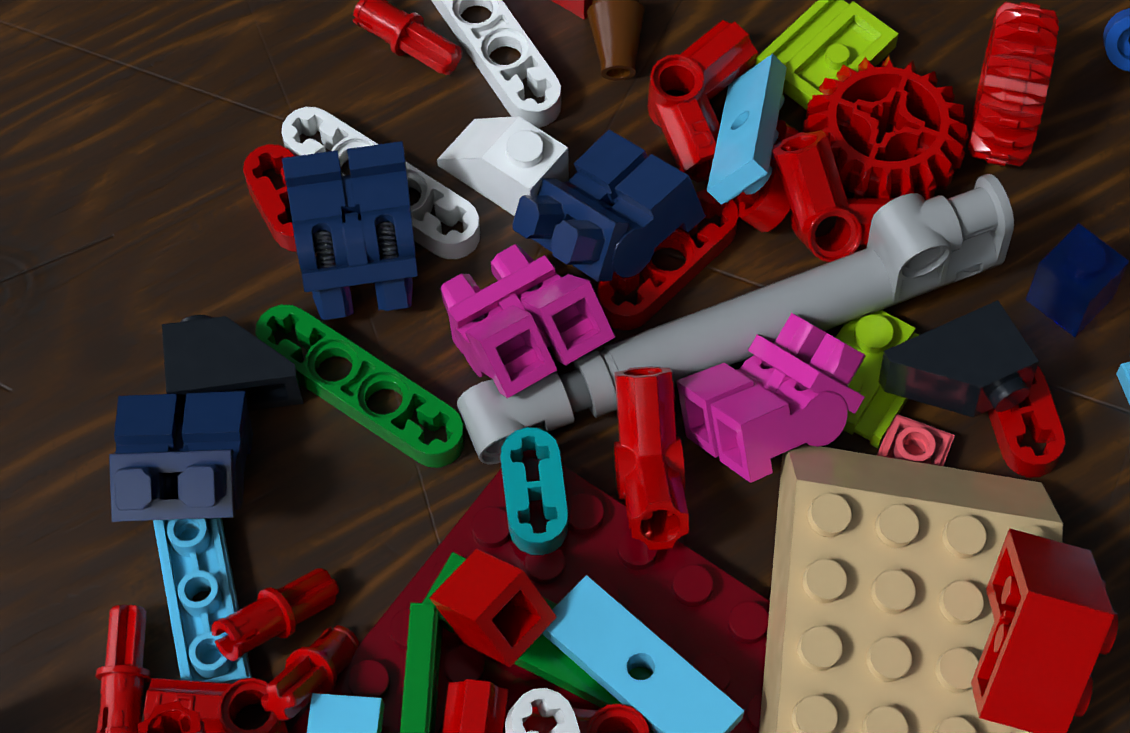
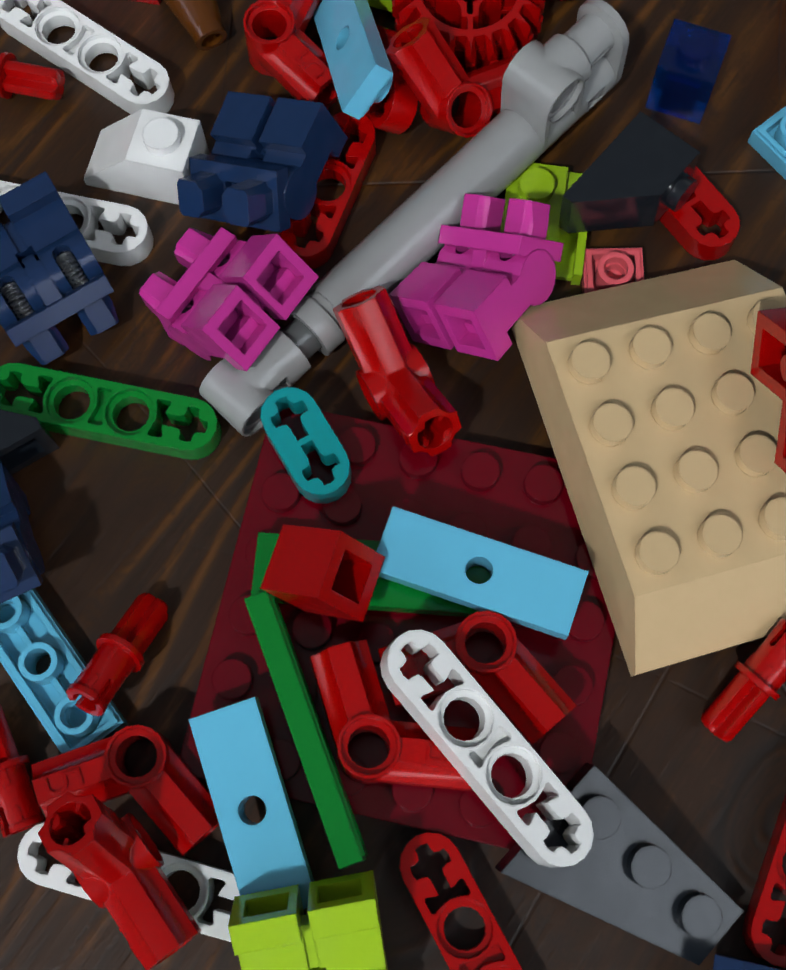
camera: 20 degrees left, 10 degrees up
(310, 671) = (176, 698): red axle -> none

